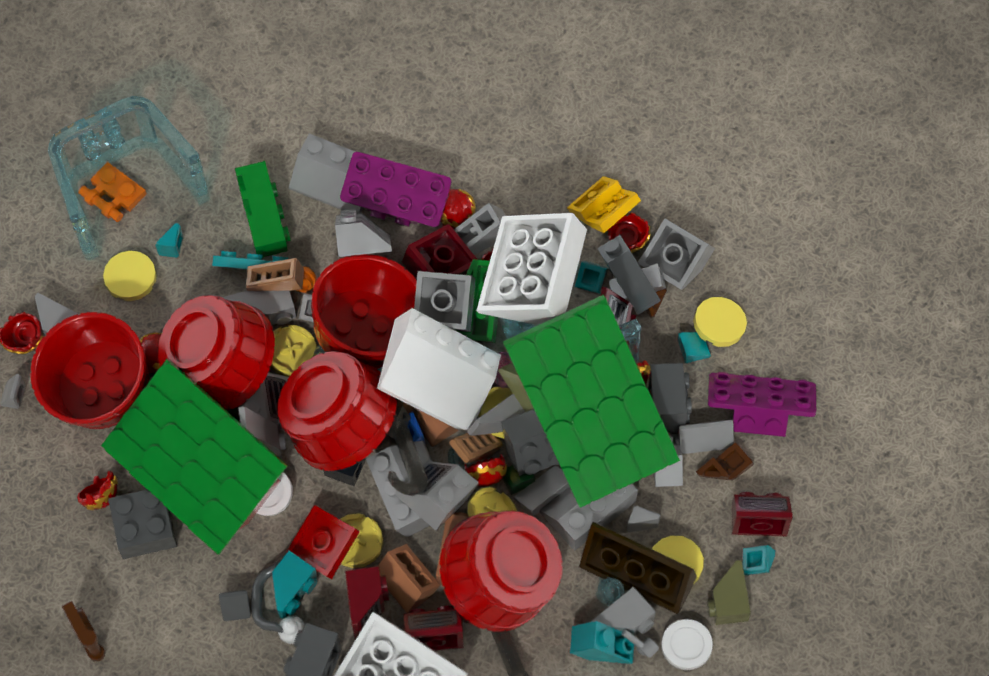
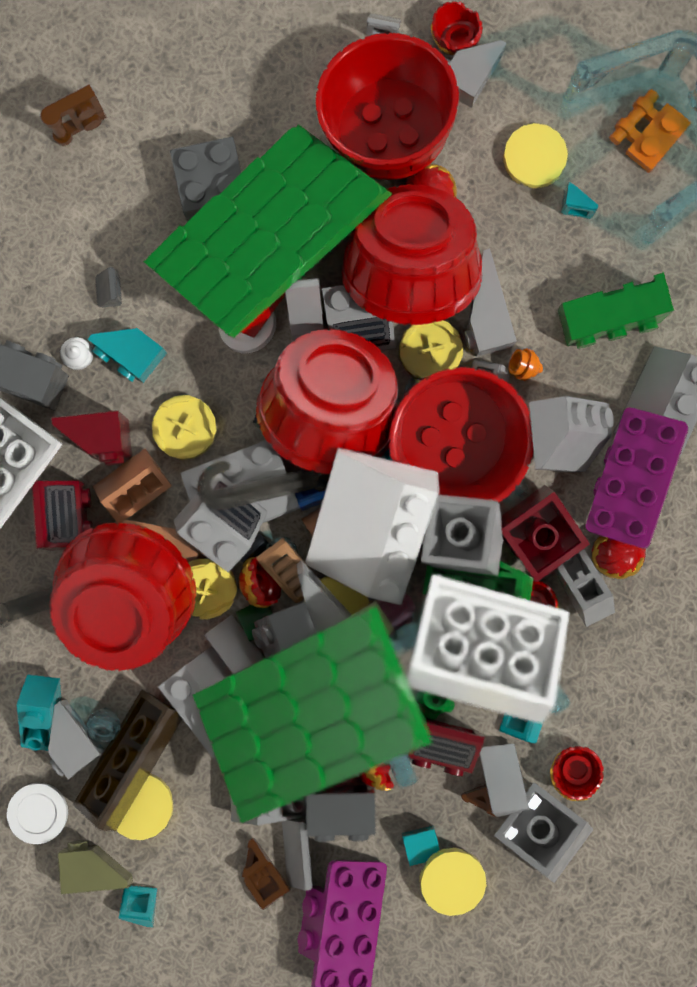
camera: 90 degrees right, 20 degrees up
(98, 493) = (248, 127): red hair -> none
(229, 259) = (544, 303): teal plate -> none
(257, 601) = (111, 313): dark grey animal -> none
(291, 278) = (514, 347): medium nougat slope -> none
(323, 541) = (175, 388): red plate -> none
(603, 204) = (620, 742): yellow slope -> none
(628, 274) = (508, 771): dark grey slope -> none
(642, 519) = (192, 767): light grey slope -> none
(647, 647) = (35, 764): light grey hand -> none
(761, 514) = (190, 917): dark red slope -> none

